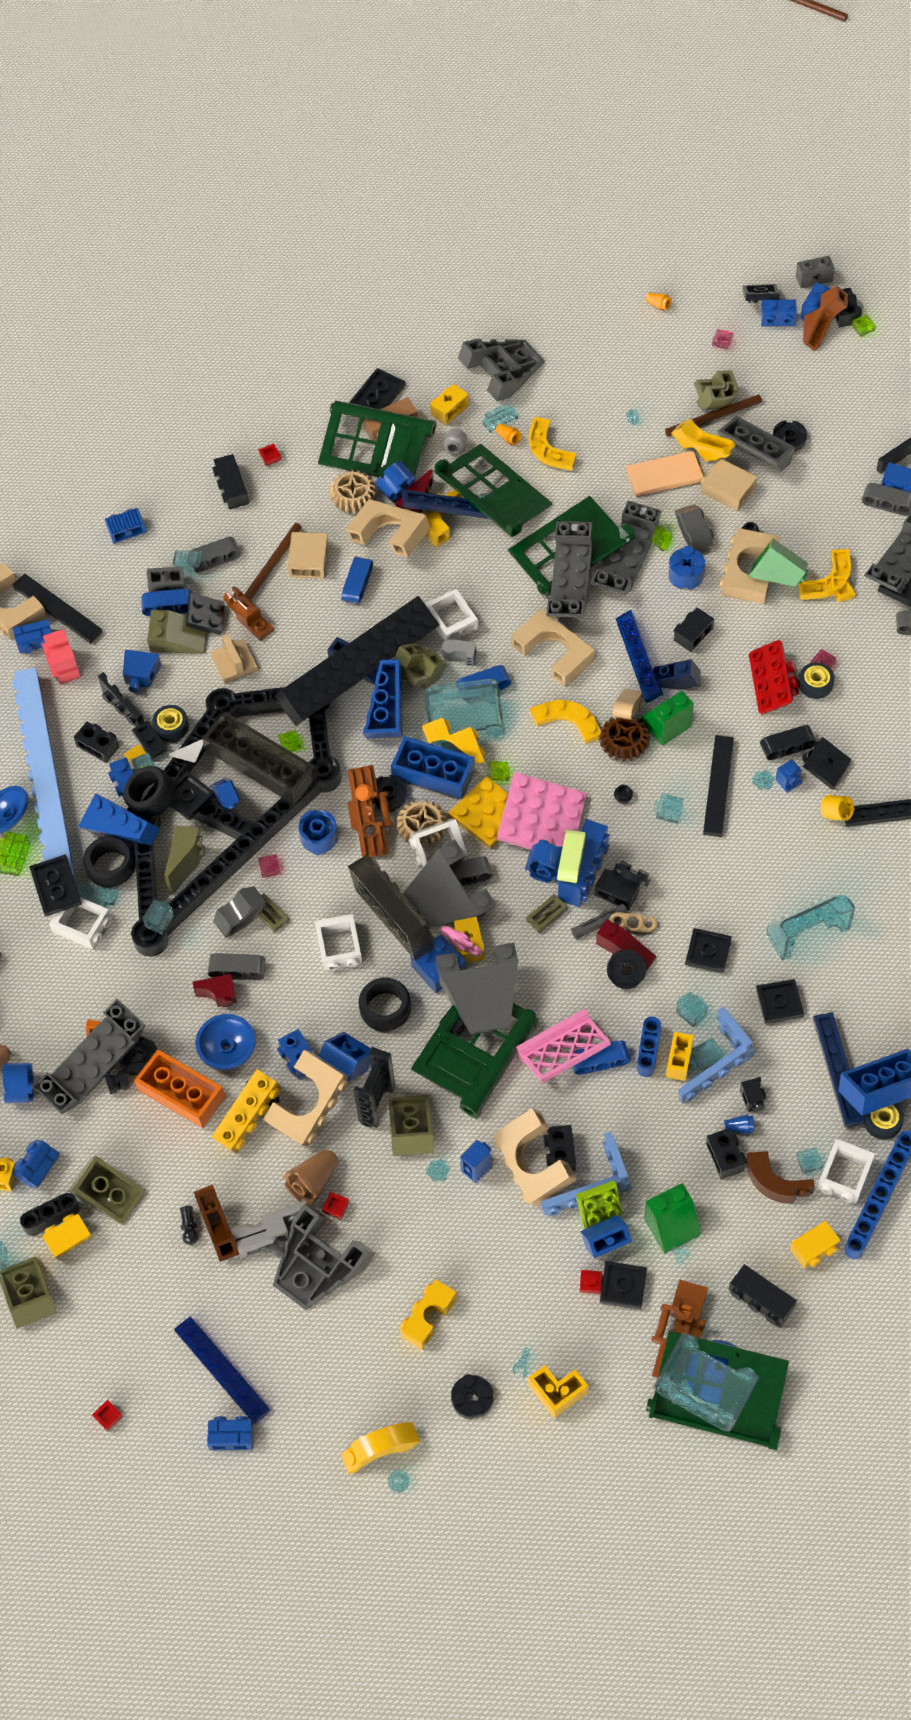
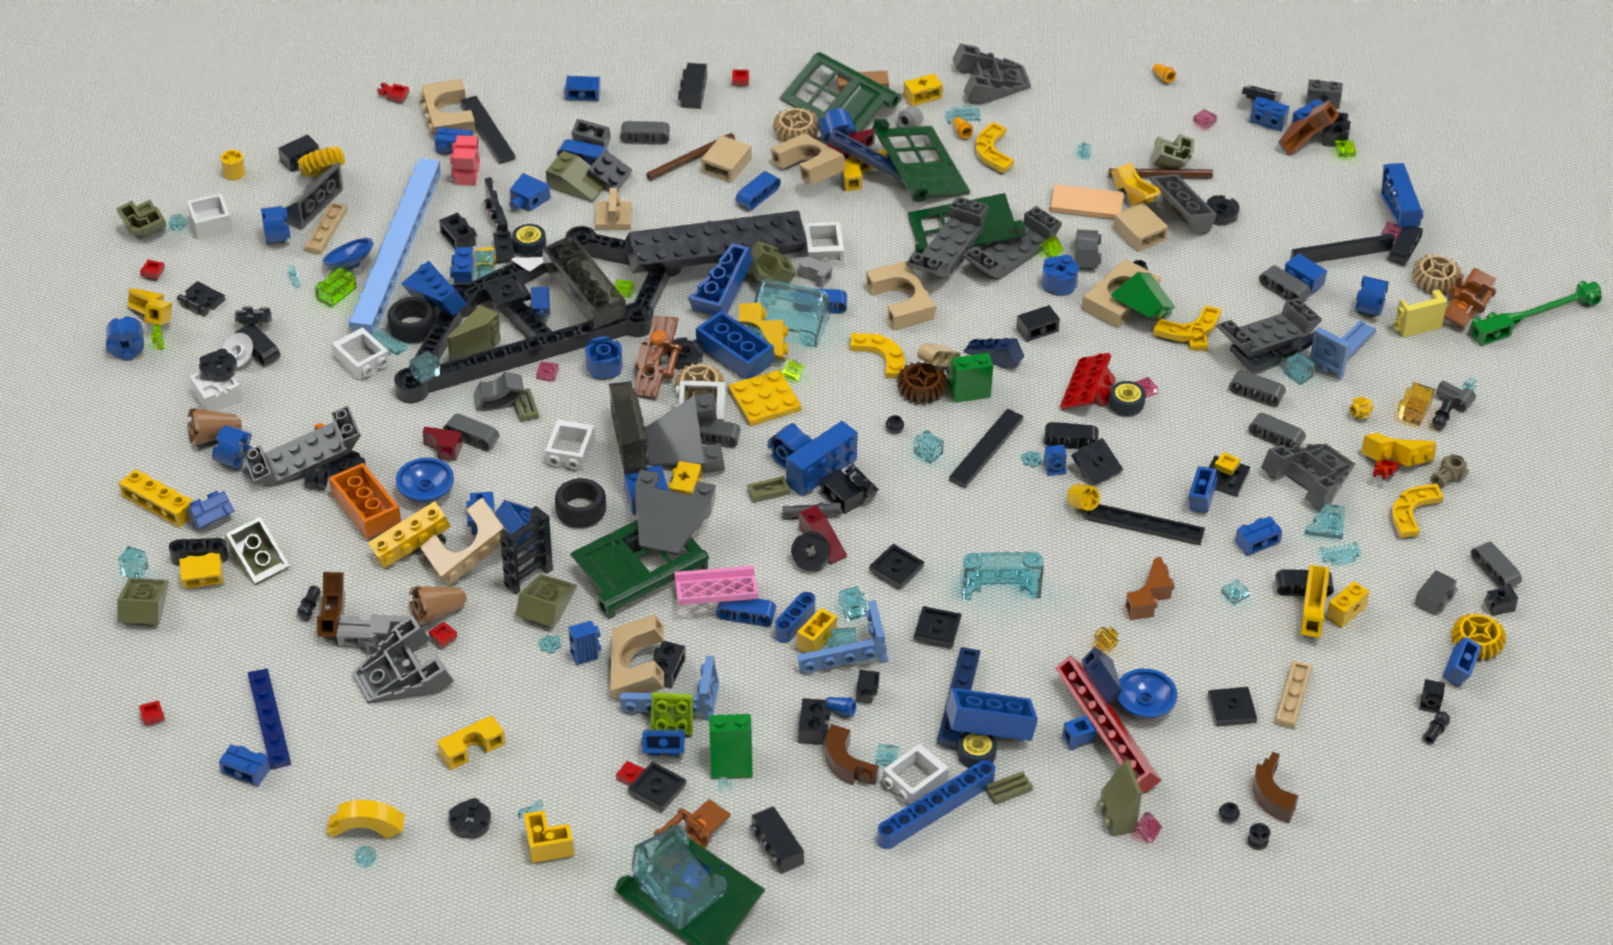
camera: 20 degrees right, 15 degrees down
(55, 885) = (354, 317): black tile -> none
(158, 801) = (474, 273): black tyre -> none
(187, 560) = (619, 128): clear light blue piece -> none
(248, 614) = (646, 183): dark orange plate -> none
(379, 390) = (869, 60): black tile -> none
(461, 941) = (674, 474): bright pink piece -> none
(539, 812) = (808, 406): bright pink plate -> none
(571, 856) = (808, 439): yellowish green beam -> none
(639, 656) = (973, 323): clear blue plate -> none
(641, 922) = (845, 528): tan piece -> none
(815, 1245) = (849, 818): yellow brick -> none

